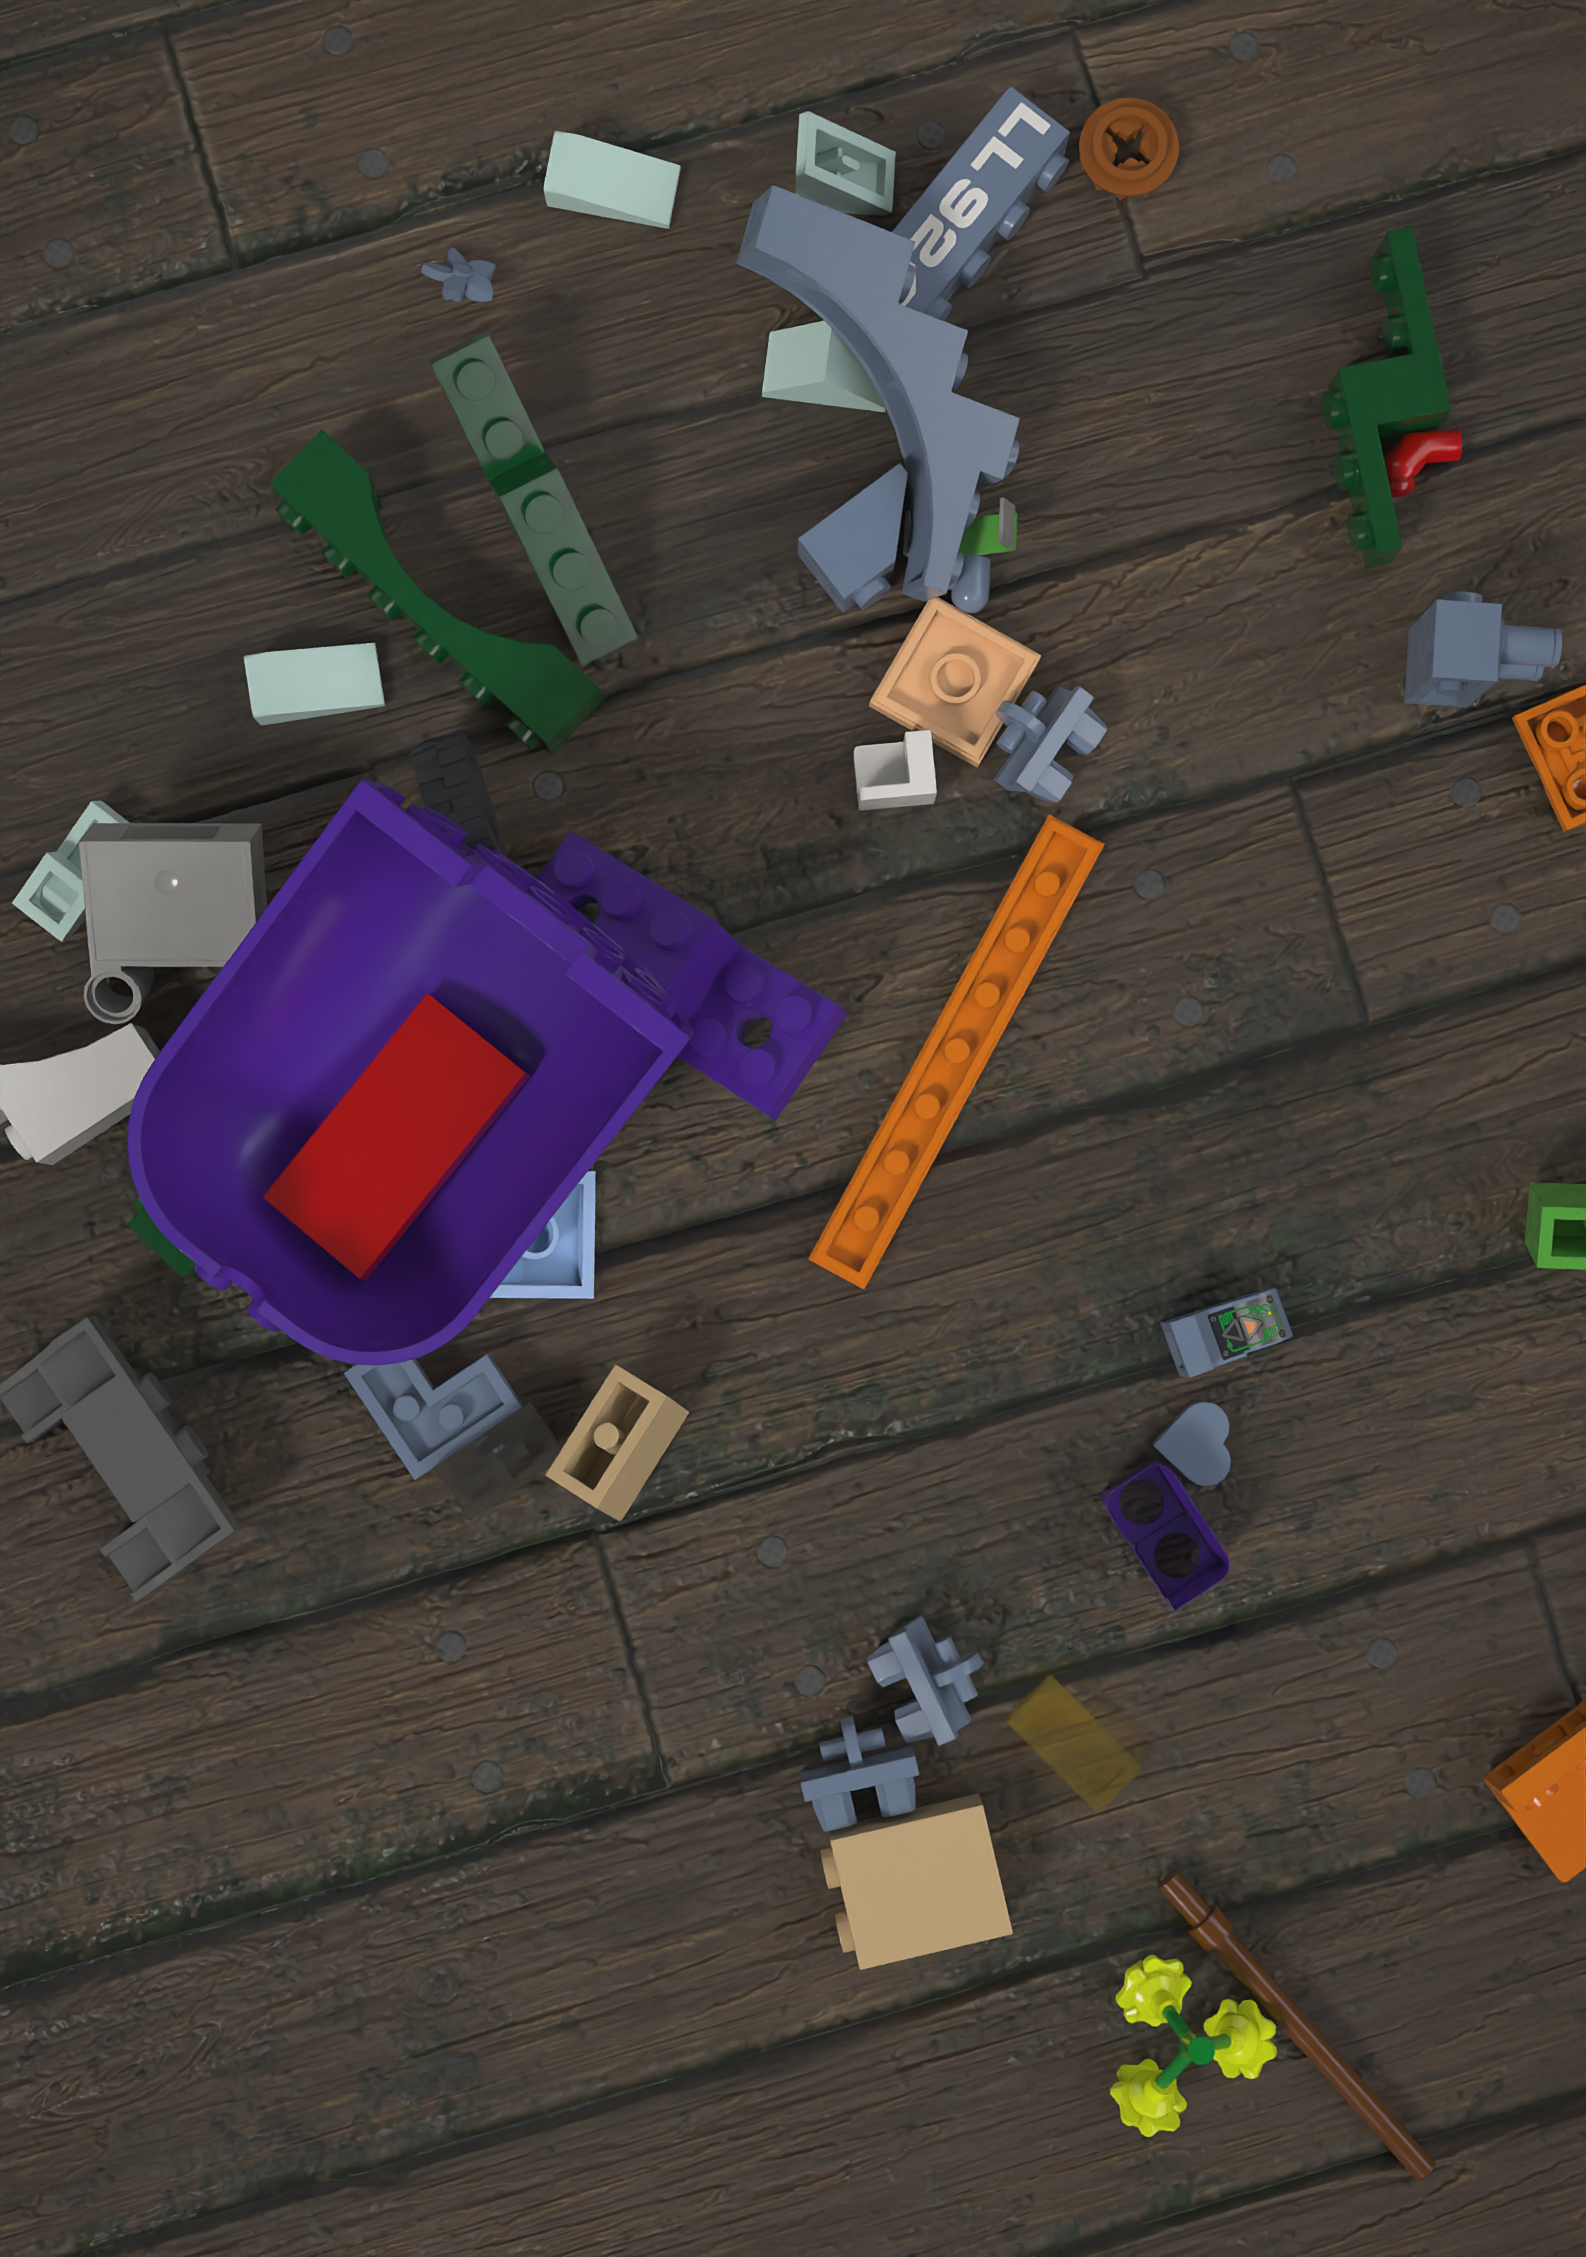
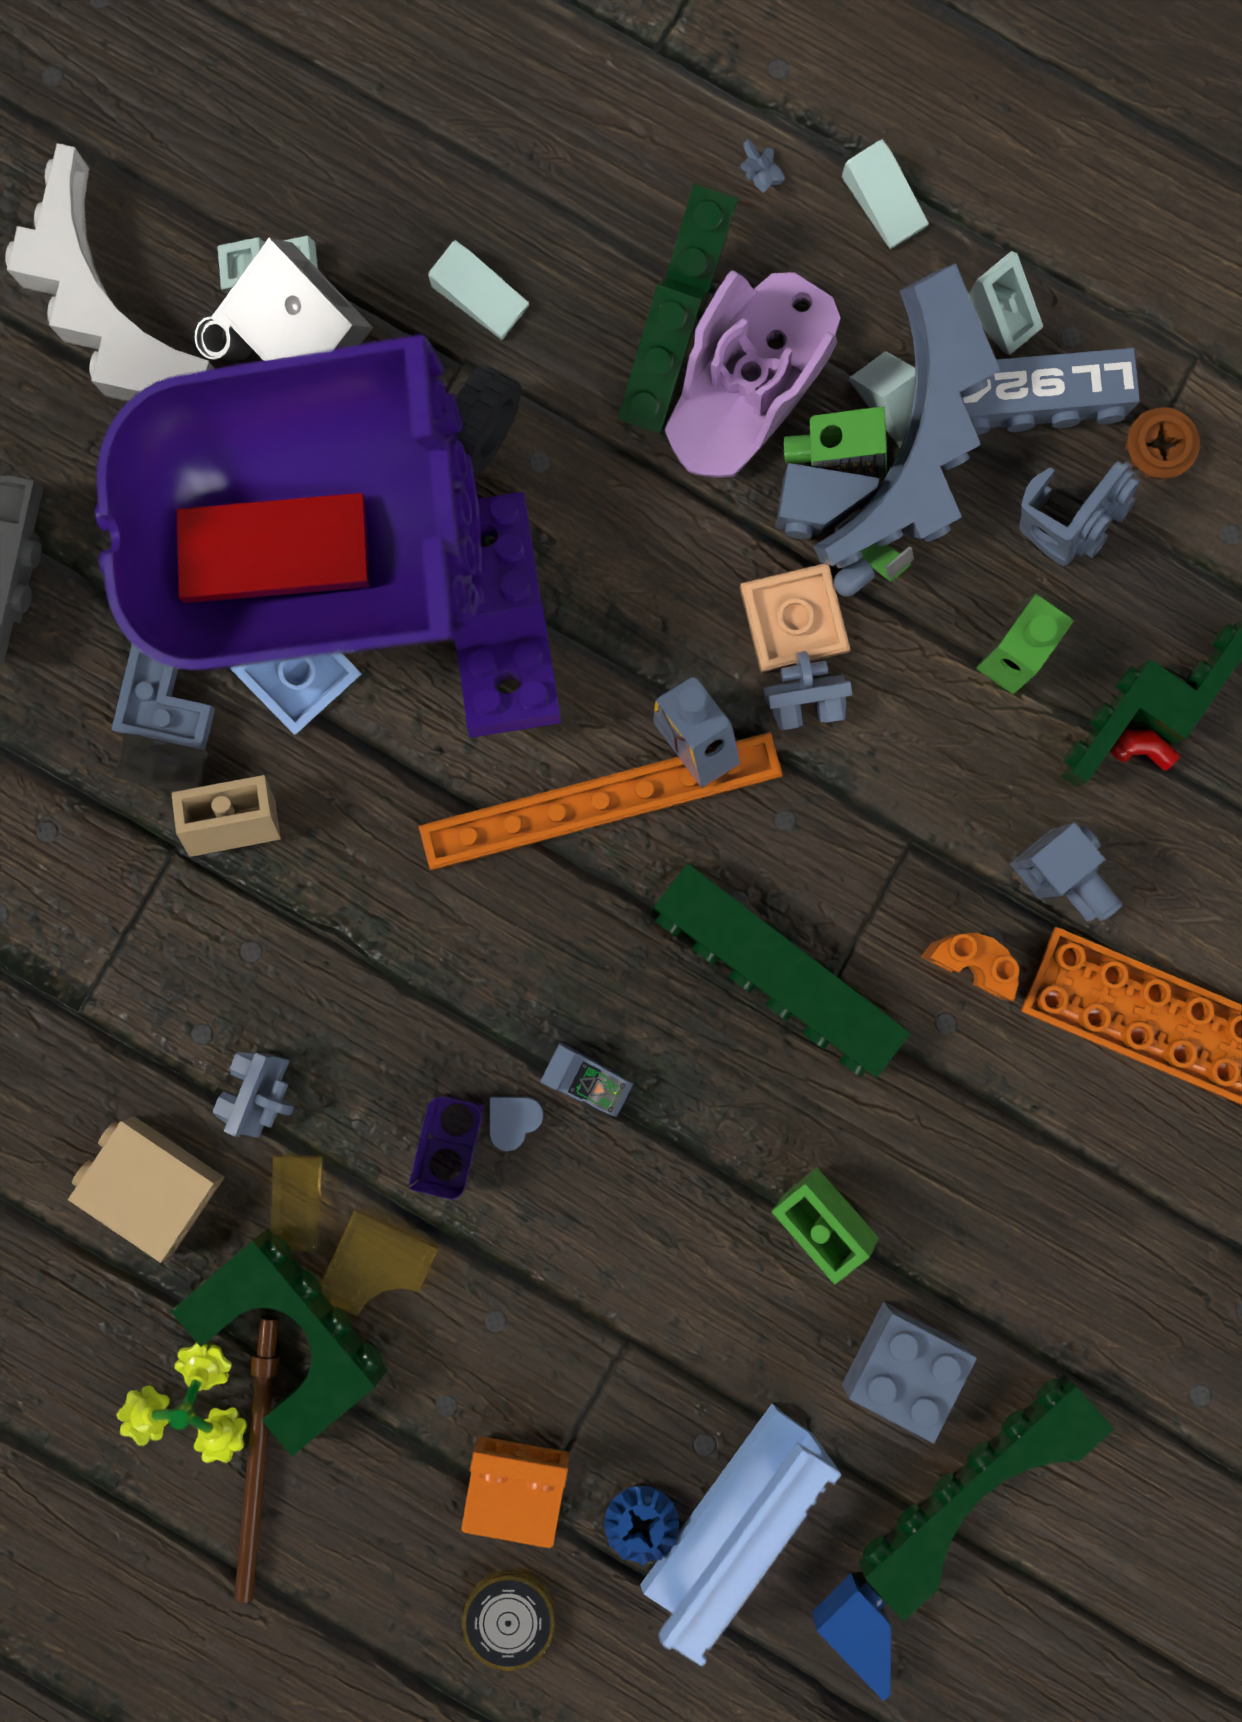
camera: 50 degrees right, 0 degrees up
(529, 681) = (582, 222): dark green arch -> none
(672, 506) = (739, 385): none -> lavender piece
(839, 441) = (857, 438): none -> bright green torso
(887, 1771) = (154, 1095): sand blue hips -> none
(896, 773) = (716, 632): white panel -> none
(976, 883) = (692, 723): none -> sand blue torso
(1127, 1840) = (341, 1363): none -> dark green arch
(1149, 299) = (1086, 532): none -> sand blue piece
(1200, 471) = (1026, 642): none -> bright green torso
(1206, 1720) = (375, 1260): none -> clear yellow tile
(1299, 1033) = (780, 971): none -> dark green brick
(1483, 815) = (986, 958): none -> orange cylinder

